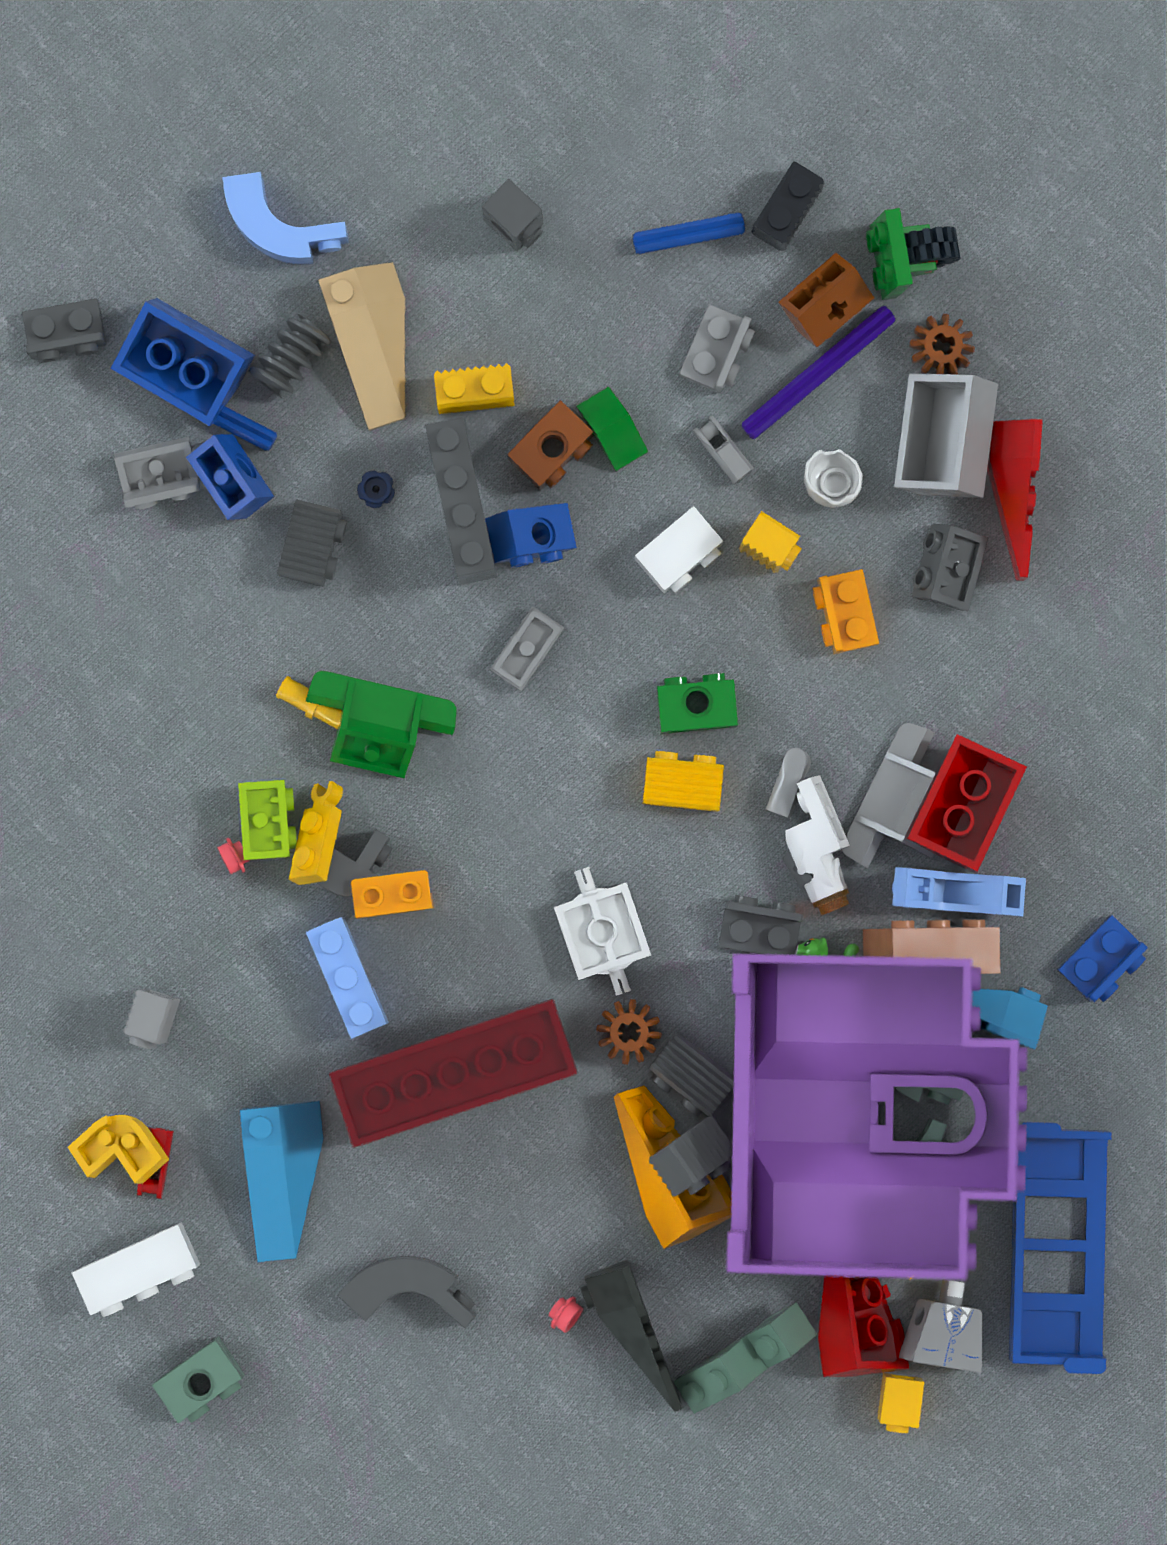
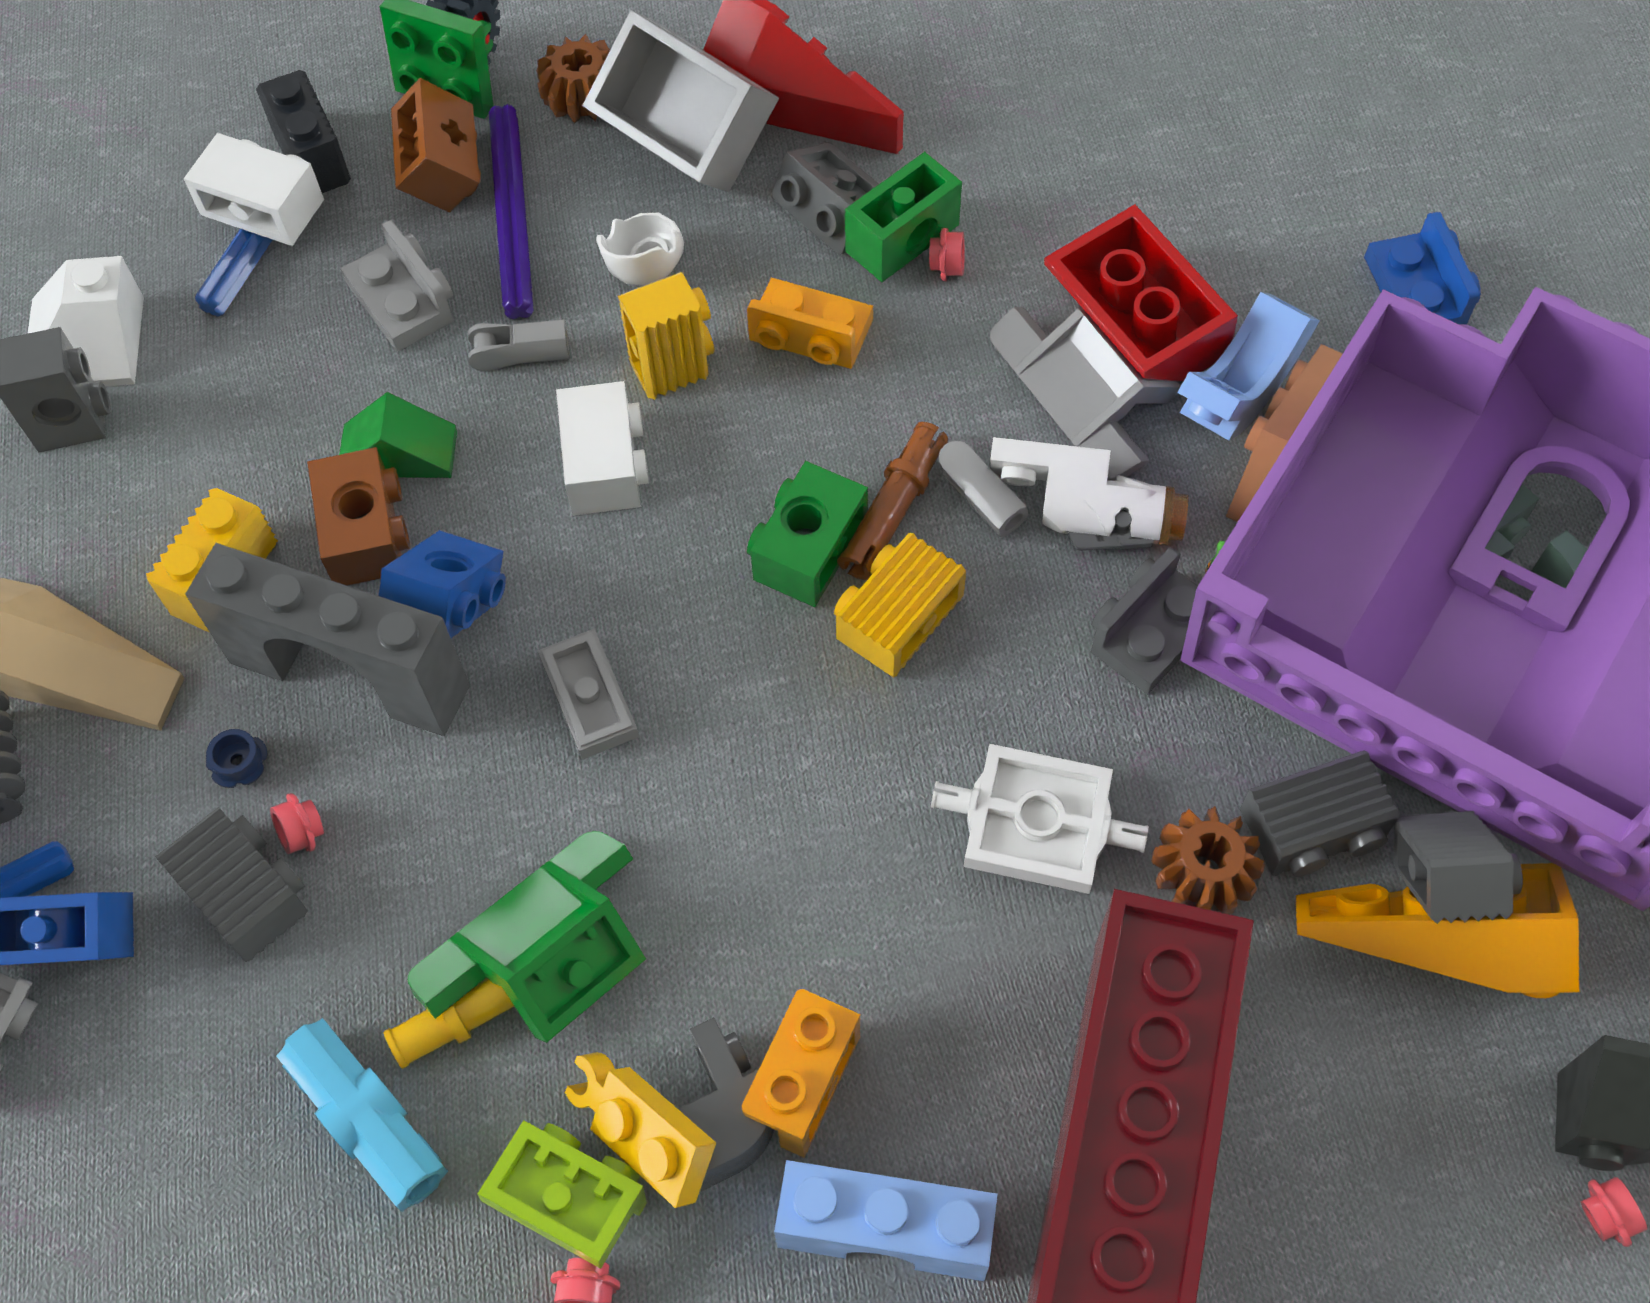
camera: 55 degrees left, 25 degrees down
(243, 694) = (362, 1114): none -> medium azure piece
(361, 549) = (296, 824): none -> coral plate
(570, 183) = (98, 311): none -> white slope
(722, 220) = (254, 188): none -> white brick
(751, 738) = (904, 481): none -> dark orange pin
(947, 664) = (947, 253): none -> coral plate
(948, 625) = (901, 215): none -> green brick

